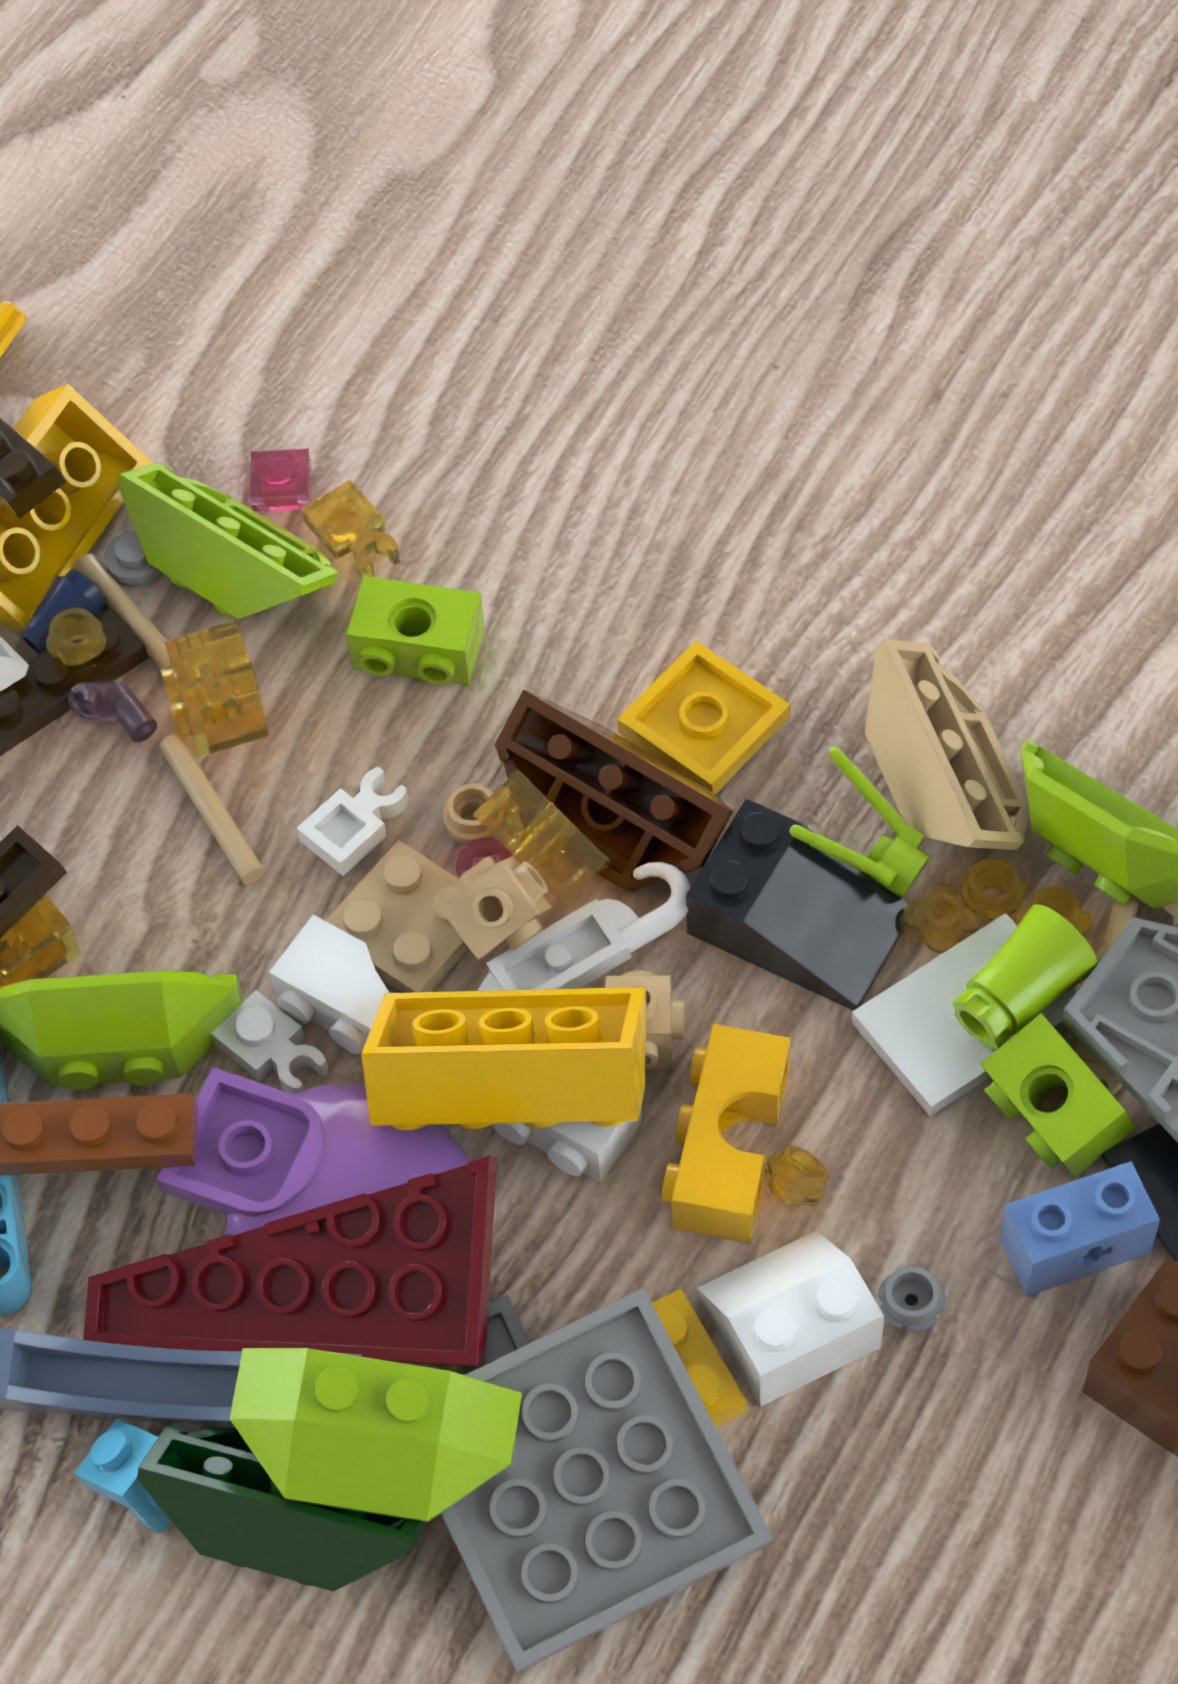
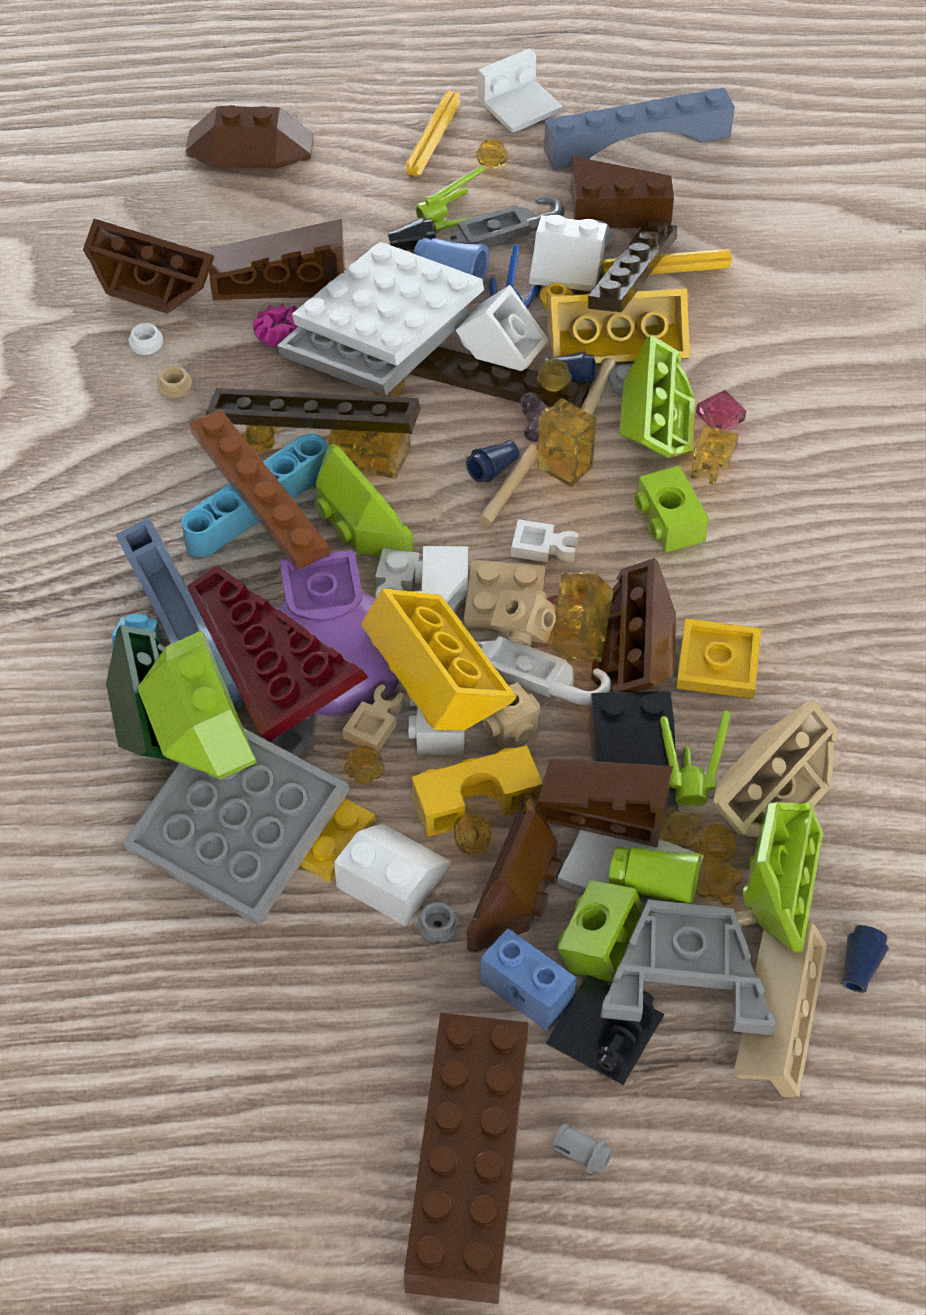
camera: 55 degrees right, 5 degrees down
(156, 808) = (488, 462): none -> dark blue cone
(525, 1210) = (374, 723): none -> tan plate
(582, 1243) = (364, 756): none -> clear yellow plate
(873, 967) = (607, 798): none -> reddish brown wedge
(903, 1152) = (517, 880): none -> reddish brown wedge

